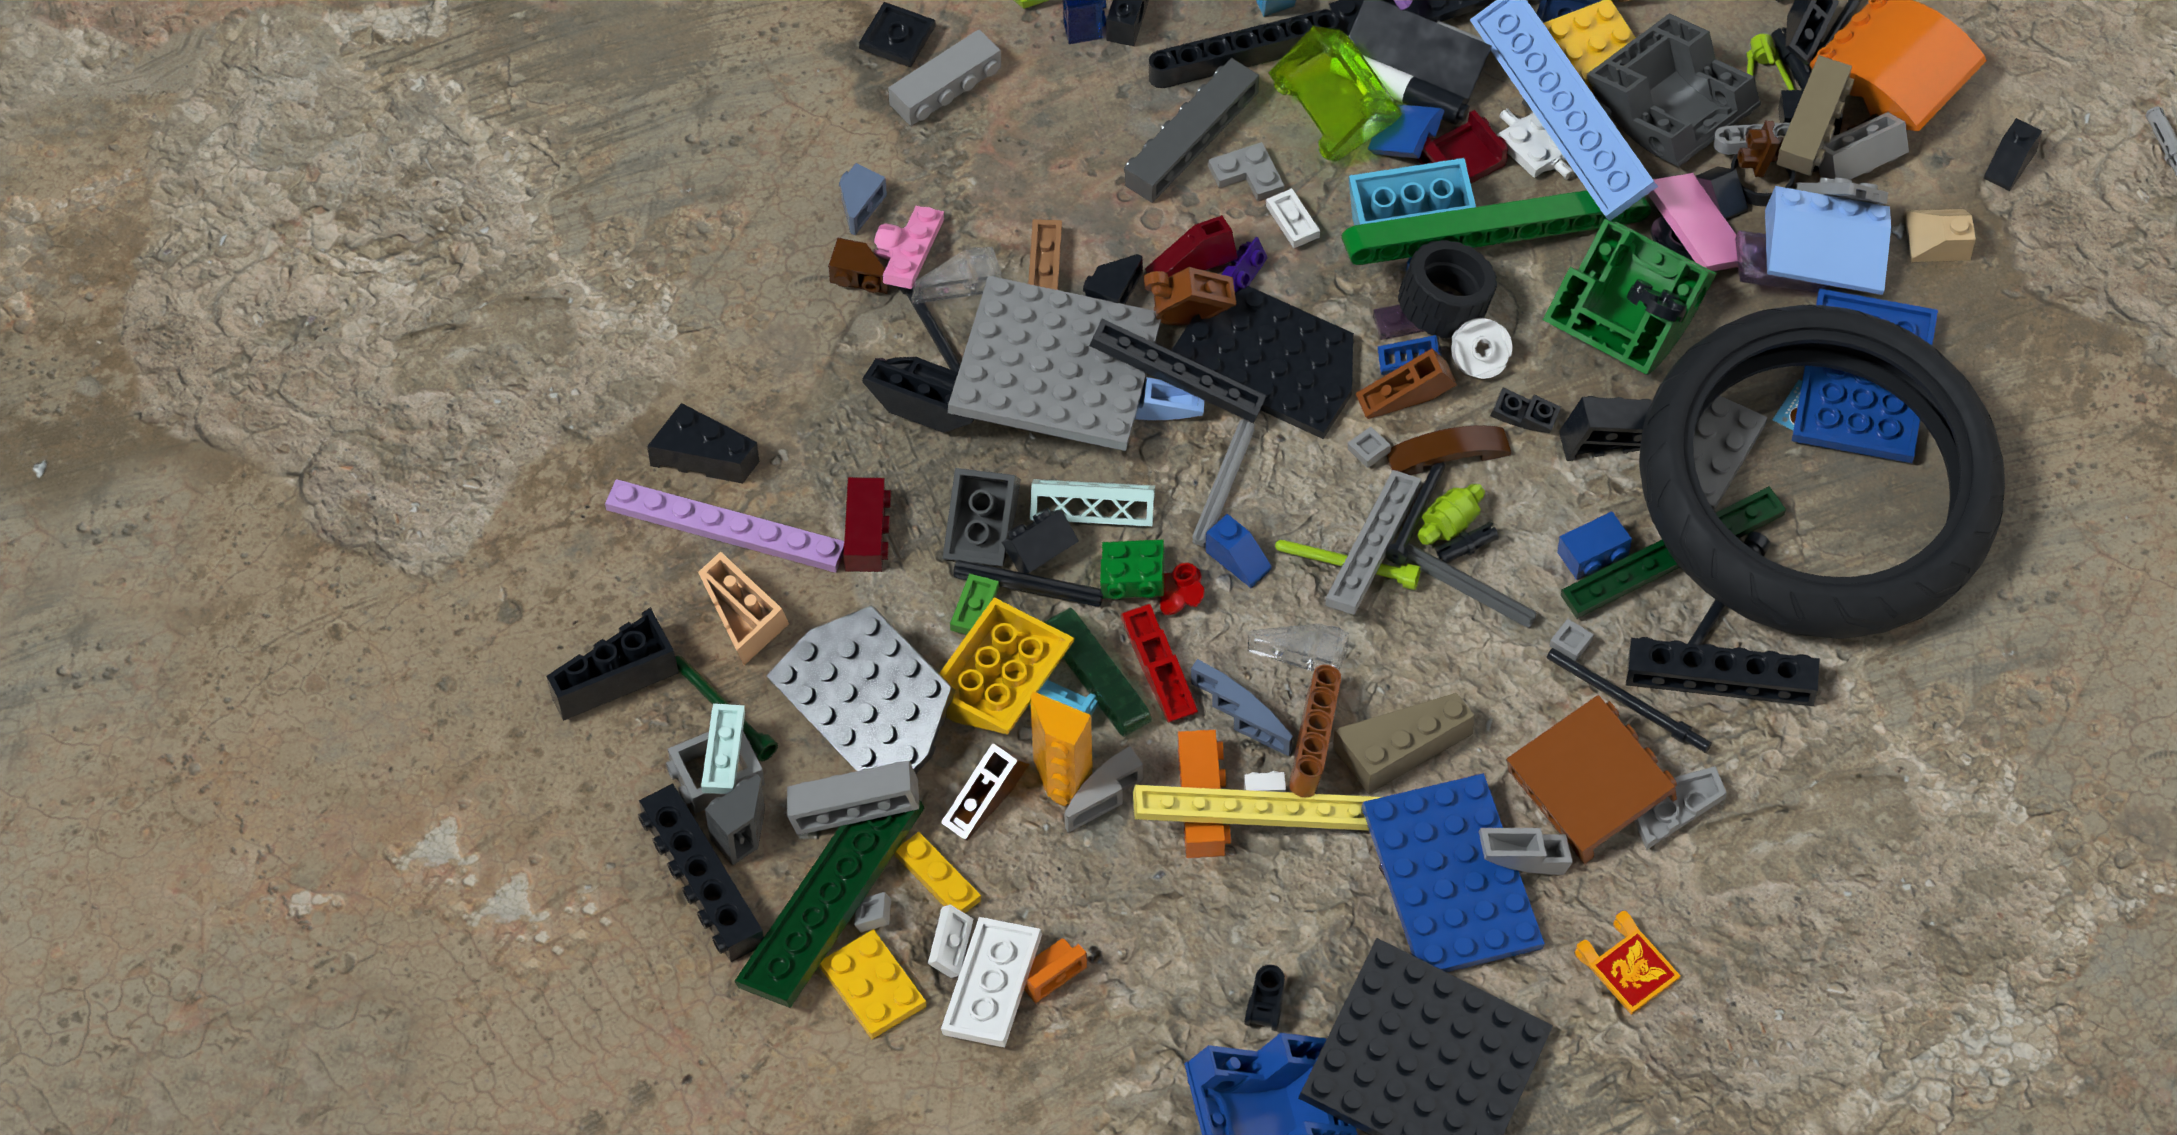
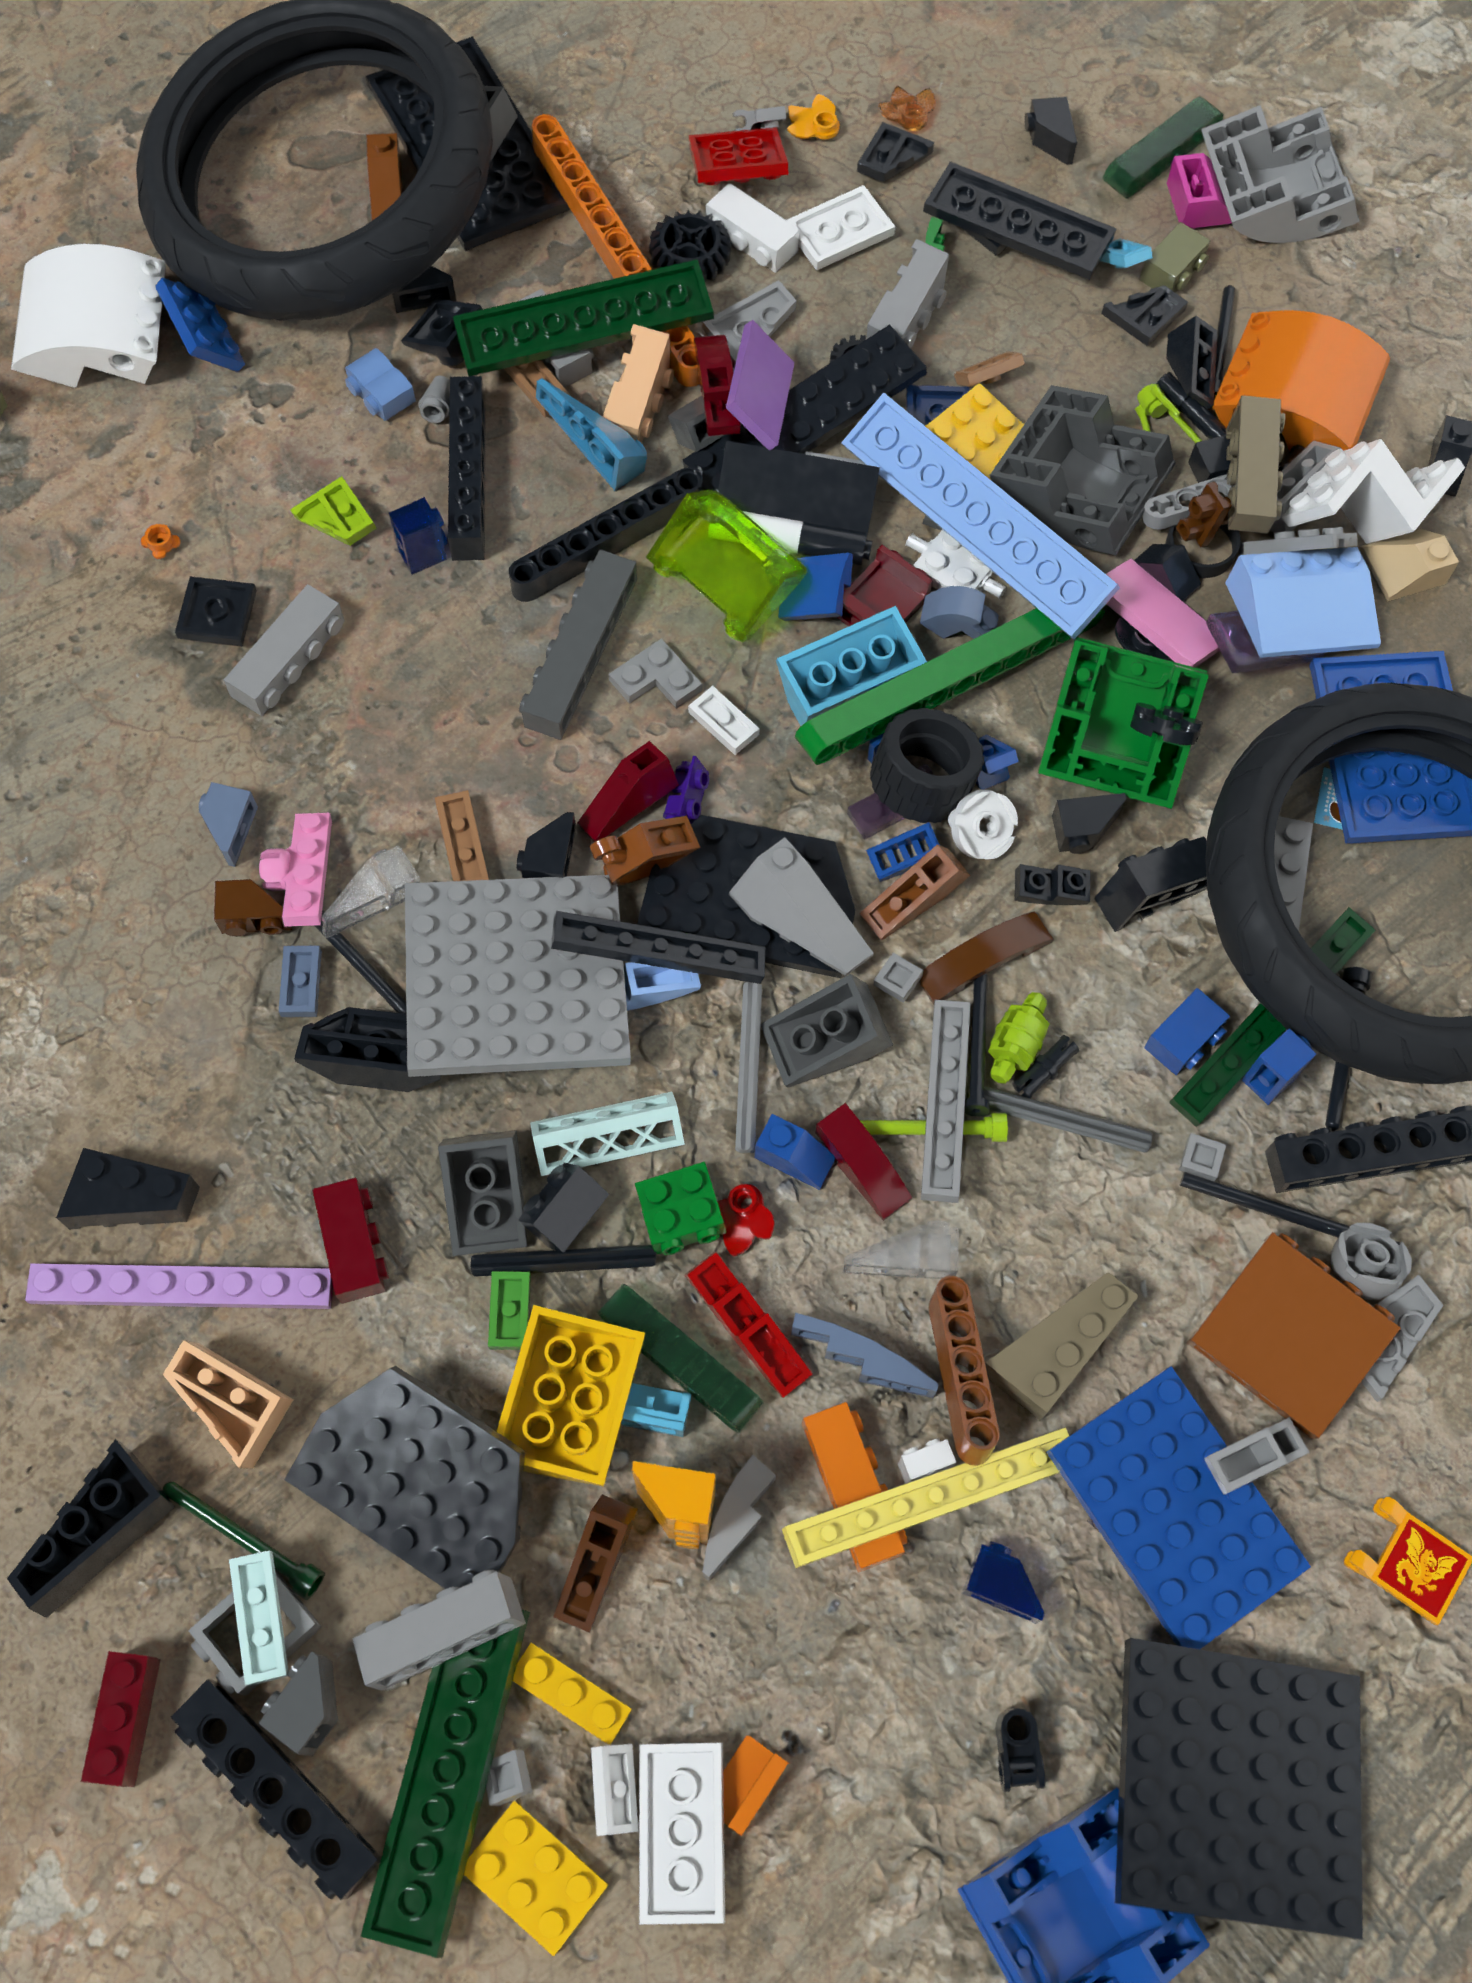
camera: 20 degrees left, 10 degrees up
(601, 796) = (121, 1719): none -> dark red brick
(882, 330) = (300, 981): none -> sand blue plate
(1291, 571) = (863, 1161): none -> dark red slope
(1293, 888) = (1002, 1583): none -> clear blue slope
(1296, 471) = (826, 1032): none -> dark grey slope
(1299, 365) = (794, 902): none -> light grey wedge
(1506, 304) = (996, 762): none -> blue slope
(1522, 177) = (957, 610): none -> sand blue brick
(1573, 367) = (1084, 820): none -> black slope
(1657, 585) = (1279, 1066): none -> blue brick
(1675, 741) = (1370, 1260): none -> light grey cylinder
(1917, 162) = (1373, 491): none -> white bracket

